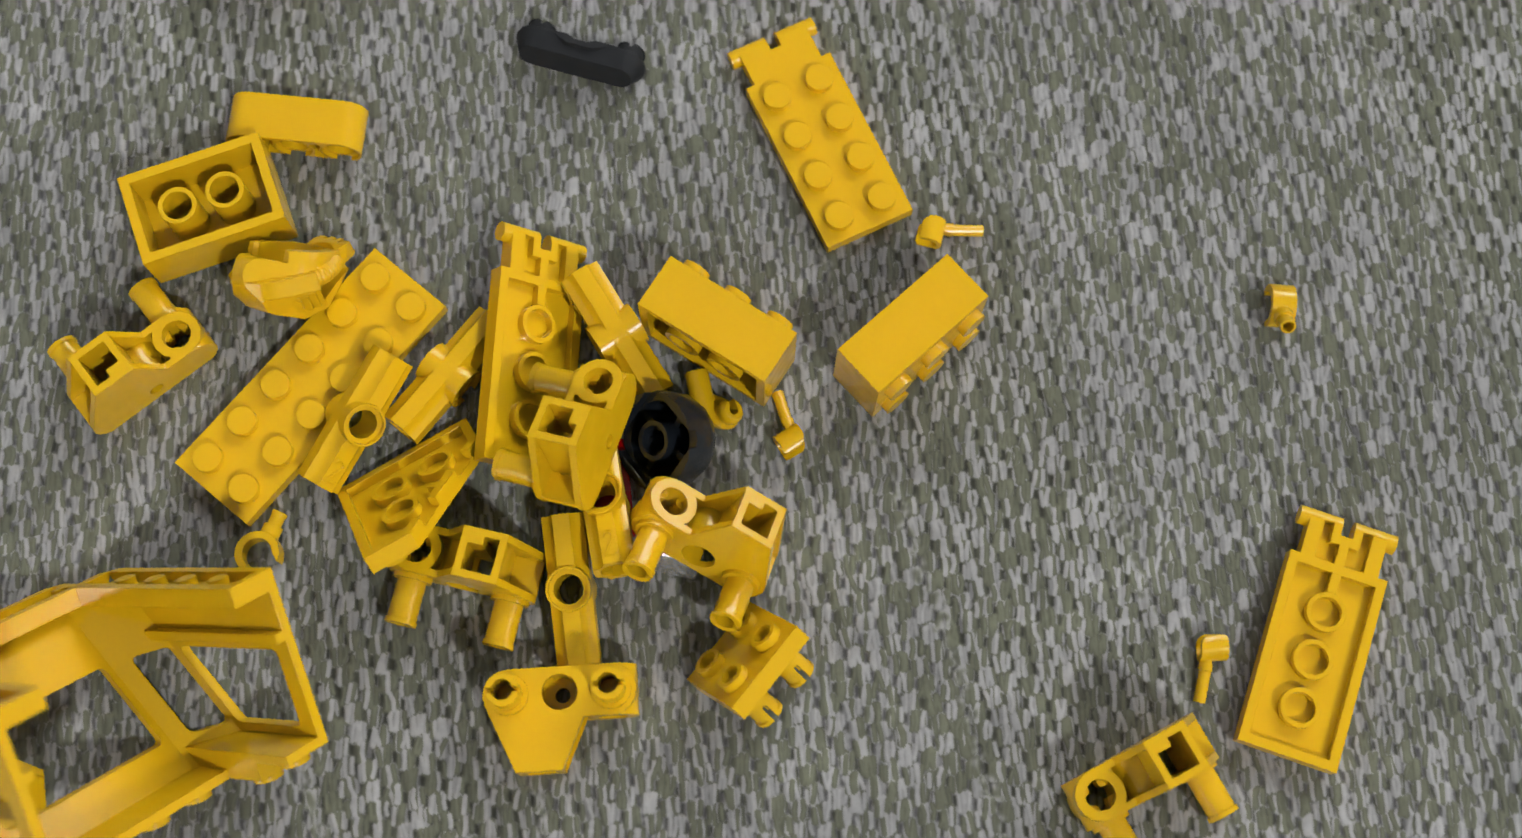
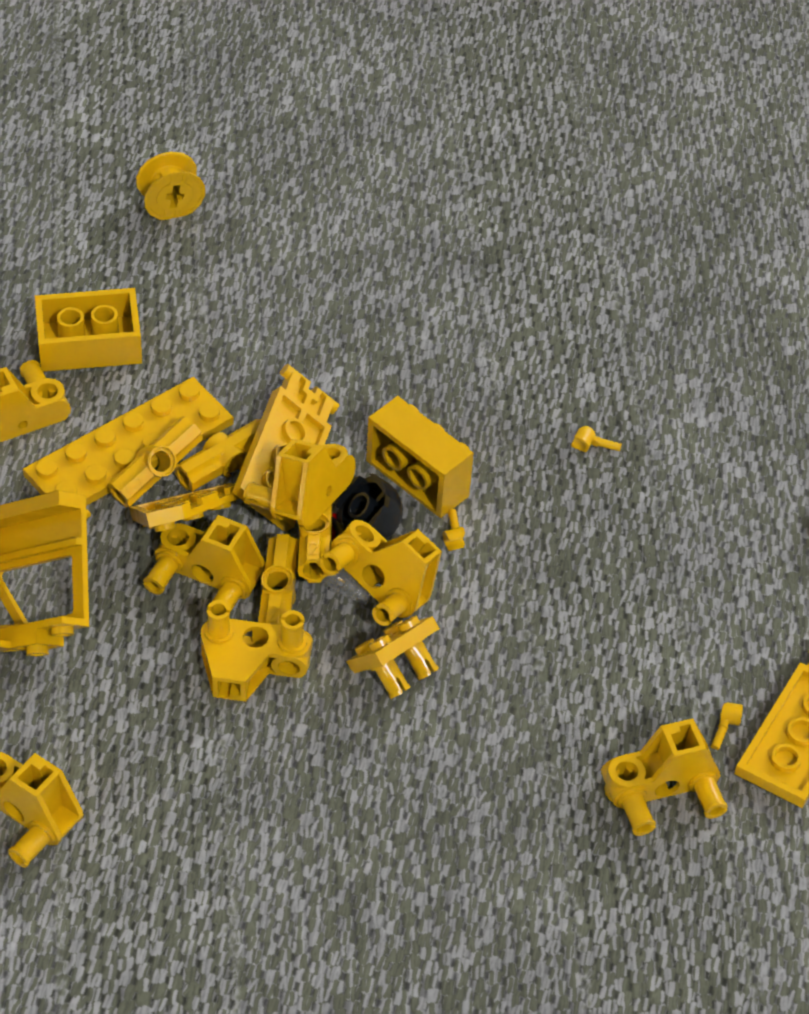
camera: 10 degrees right, 25 degrees down
(290, 275) = (132, 374): yellow helmet -> none
(300, 124) = (166, 300): yellow beam -> none
(592, 60) = (363, 298): black piece -> none
(614, 328) = (341, 430): yellow piece -> none
(722, 412) = (411, 514): yellow arm -> none
(820, 136) = (519, 374): yellow hinge -> none
(911, 337) = (552, 484): yellow brick -> none

